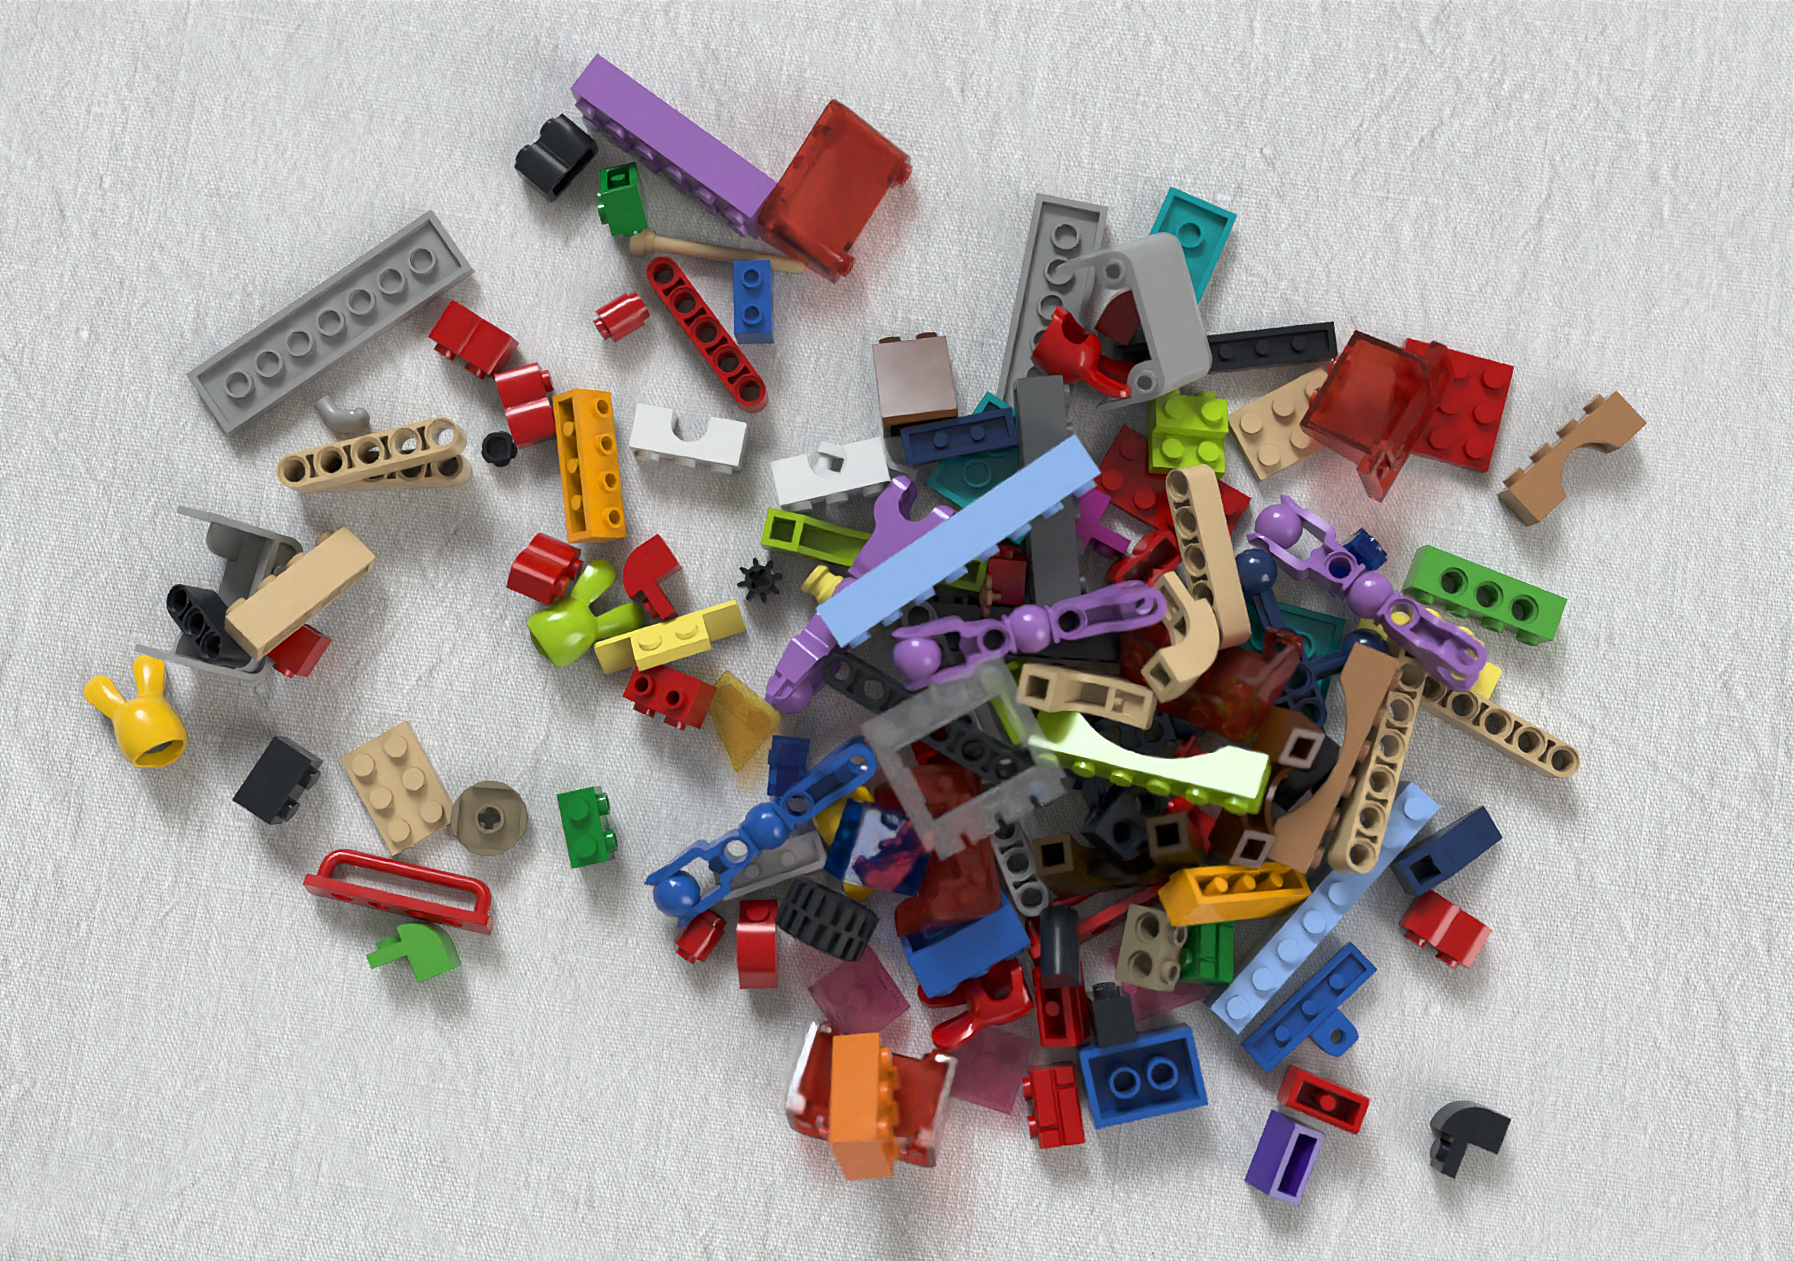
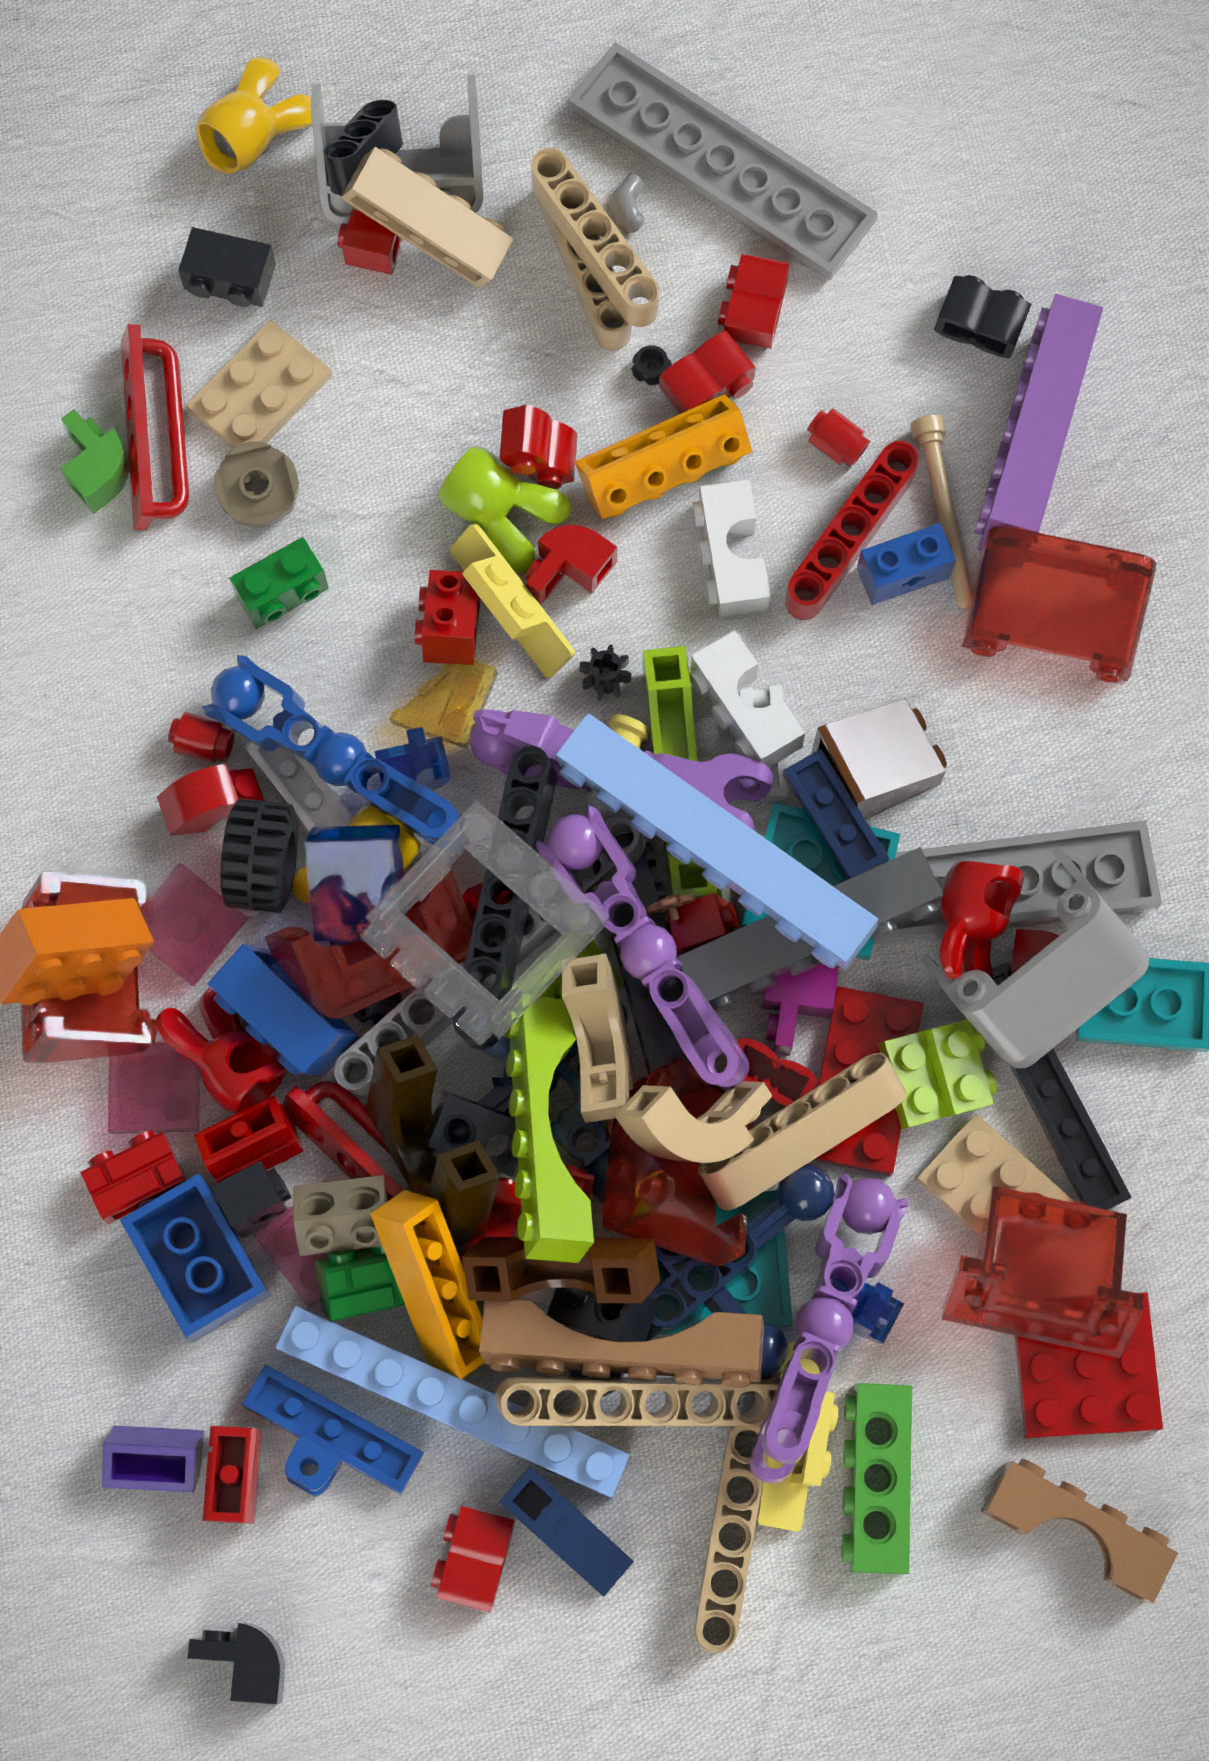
camera: 70 degrees right, 10 degrees down
(622, 200) = (961, 391): green brick -> none
(1059, 947) = (309, 1111): black brick -> none

